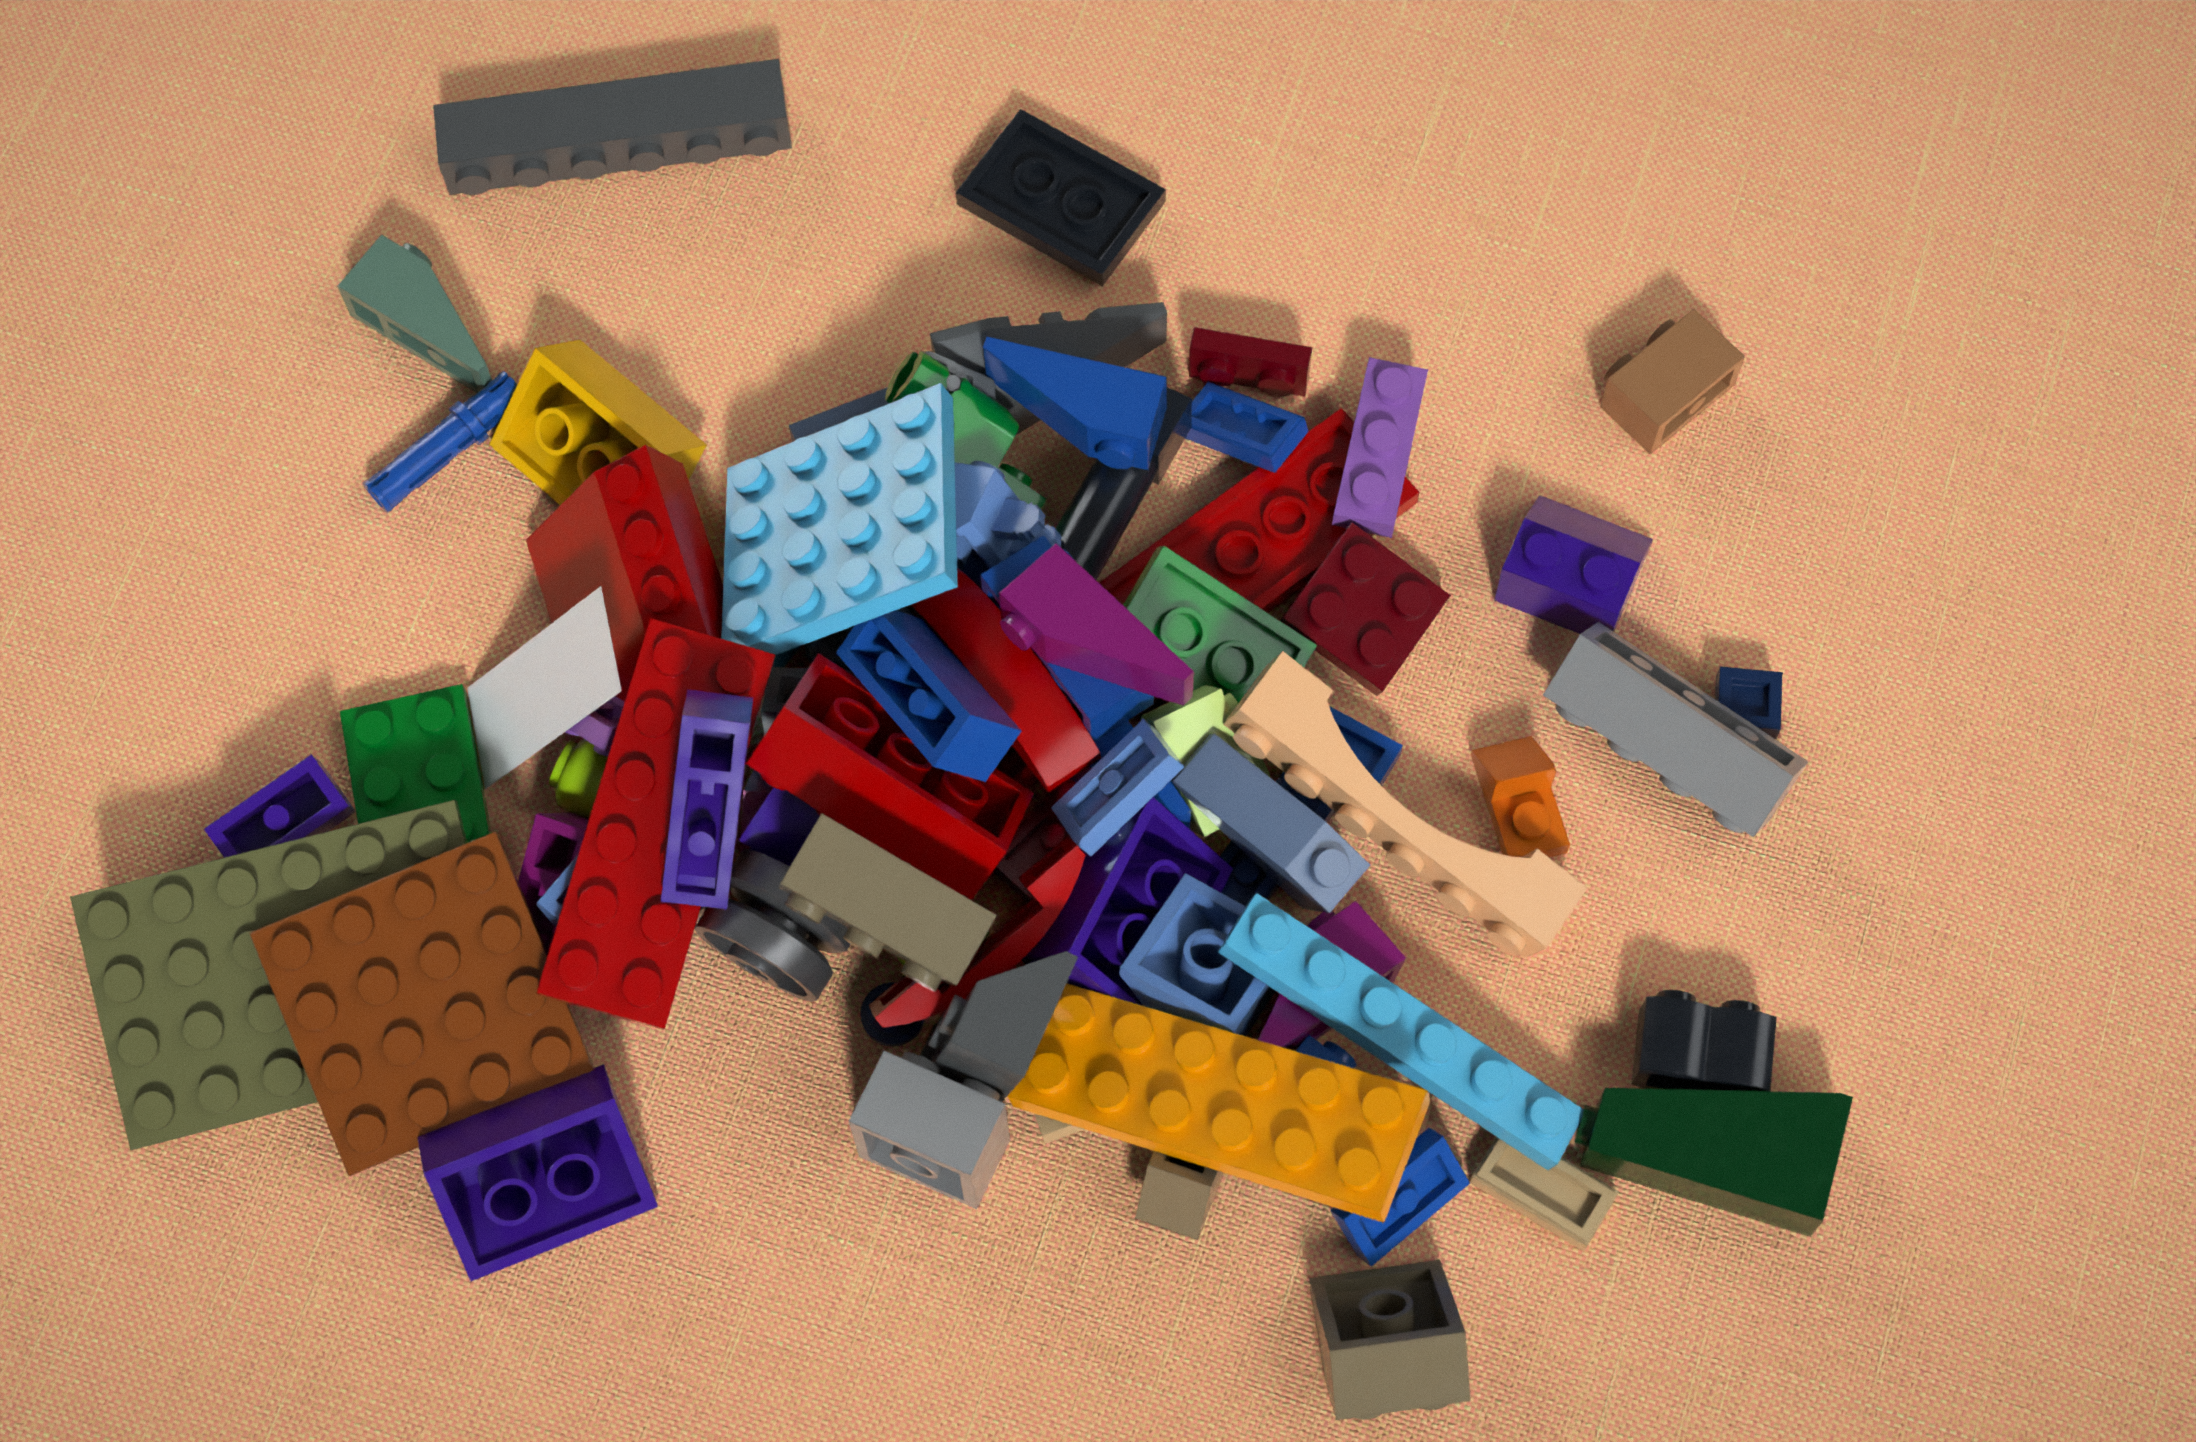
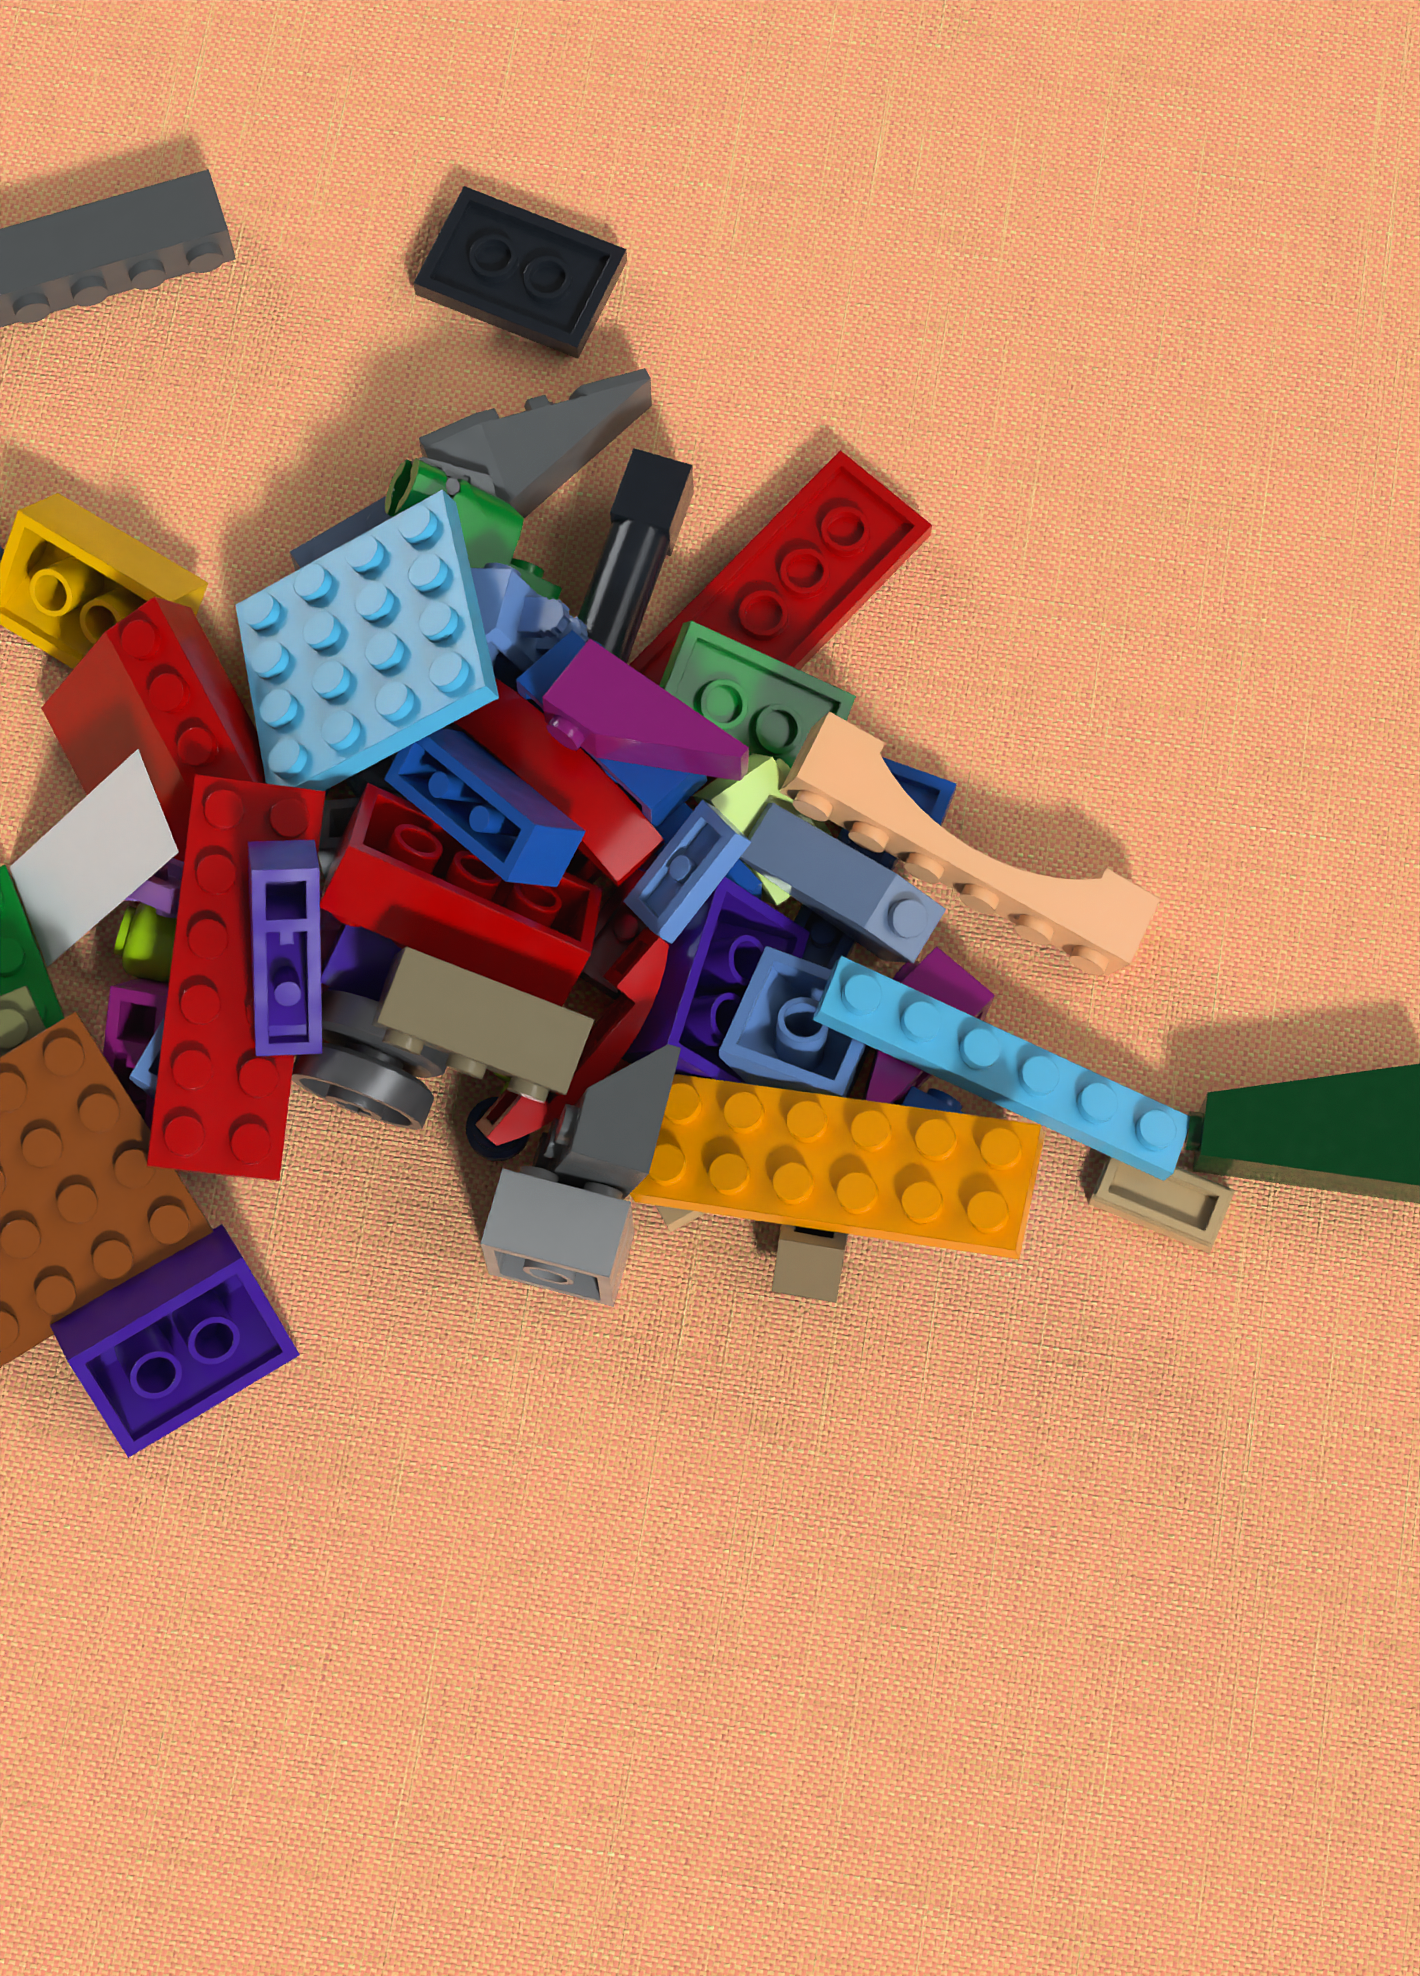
camera: 10 degrees left, 5 degrees up
(1090, 403) = (596, 487): blue slope -> none
(1245, 427) = (747, 484): blue plate -> none
(1249, 362) = (760, 417): dark red plate -> none
(1365, 609) = (897, 651): dark red plate -> none
(1380, 447) = (886, 485): medium lavender plate -> none
(1390, 1340) = (1038, 1369): dark tan slope -> none
(1426, 1186) = (1052, 1212): blue plate -> none
(1519, 797) = (1078, 818): orange slope -> none
(1571, 567) = (1095, 580): dark purple slope -> none
(1670, 380) = (1162, 373): medium nougat brick -> none
(1674, 730) = (1220, 727): light grey brick -> none
(1702, 1045) = (1294, 1037): black brick -> none
(1752, 695) = (1287, 689): dark blue plate -> none

